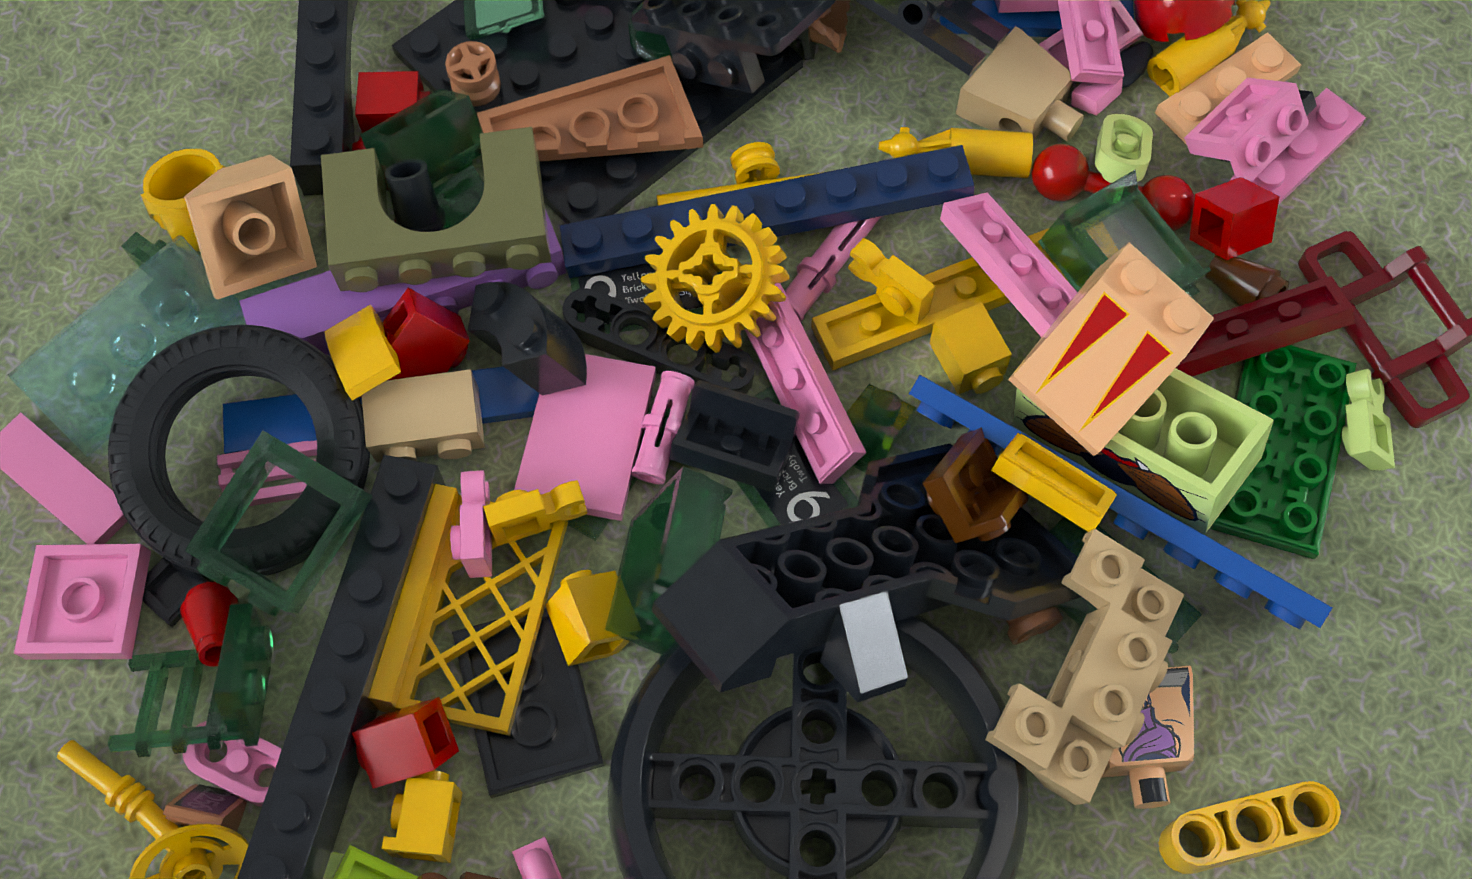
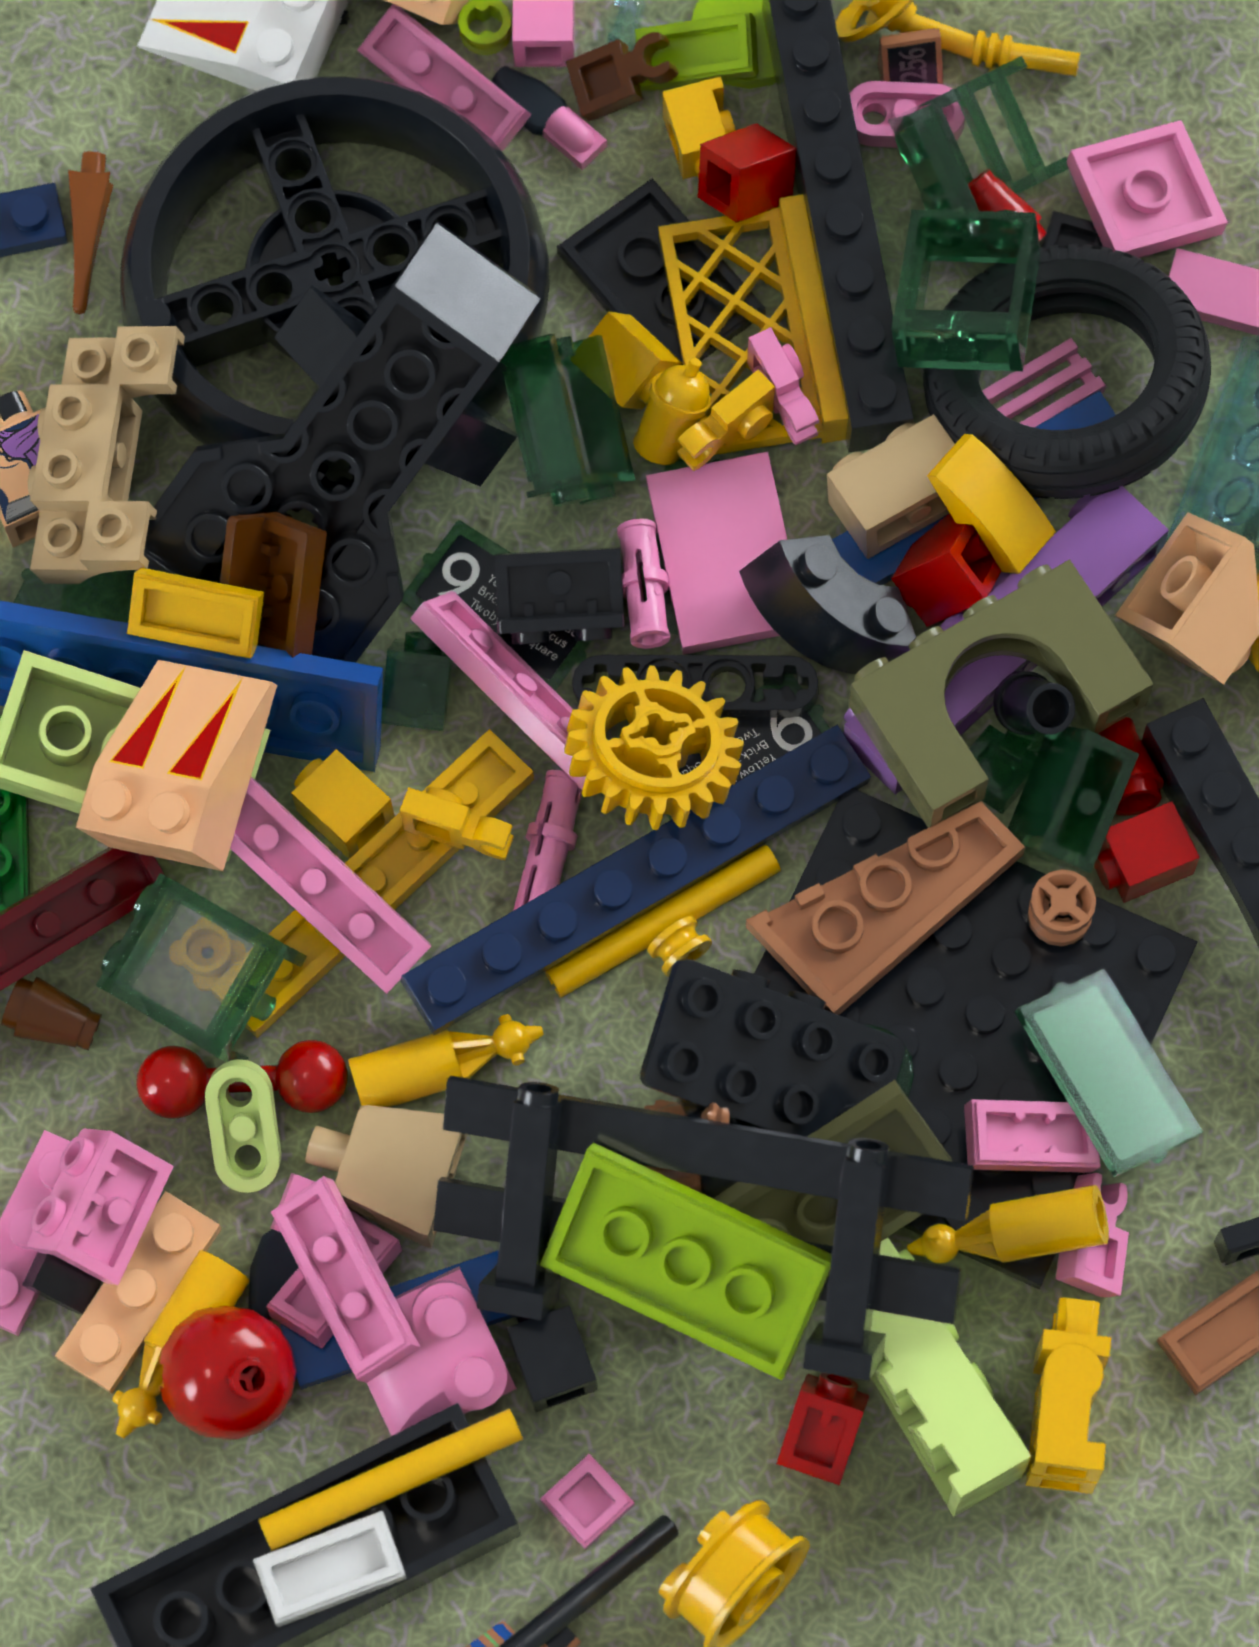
camera: 160 degrees right, 5 degrees up
(572, 546) = (675, 403): none -> yellow piece
(1233, 218) = (84, 1076): red brick -> none

